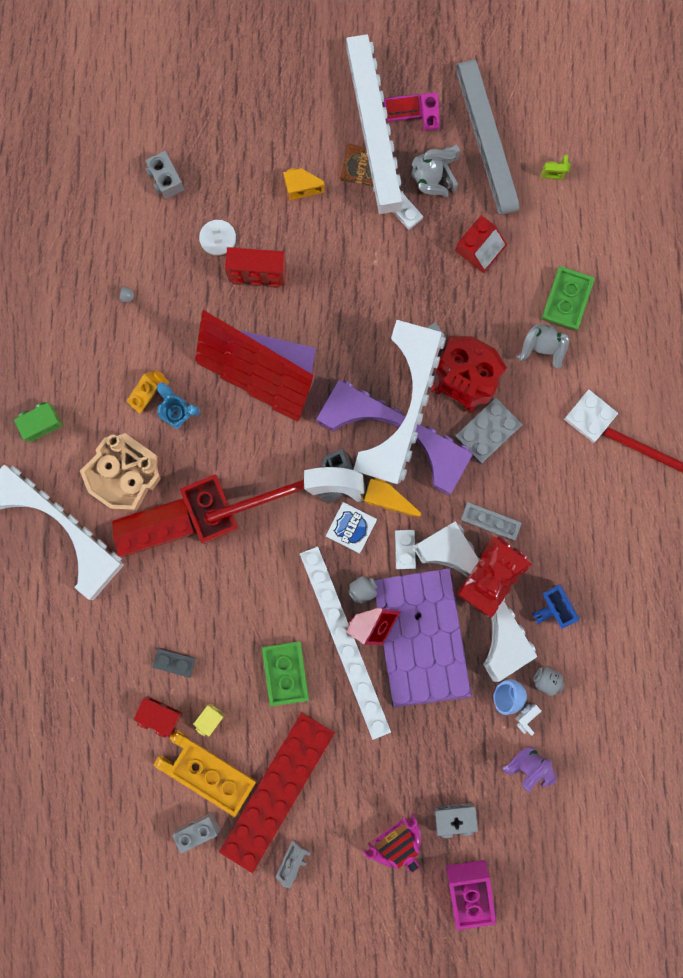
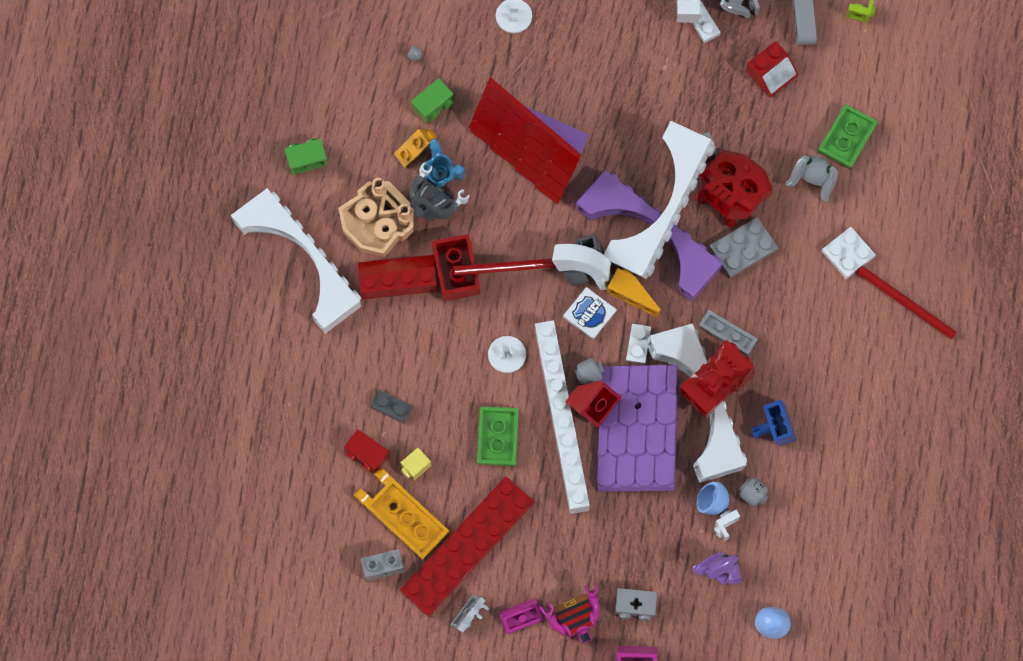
camera: 15 degrees right, 10 degrees down
(154, 340) = (432, 101): none -> bright green brick
(170, 444) = (431, 200): none -> dark grey torso
(255, 267) = (546, 50): red brick -> none
(278, 585) = (507, 354): none -> white piece
(343, 851) = (521, 616): none -> dark pink slope
(592, 808) = (773, 622): none -> light blue hat

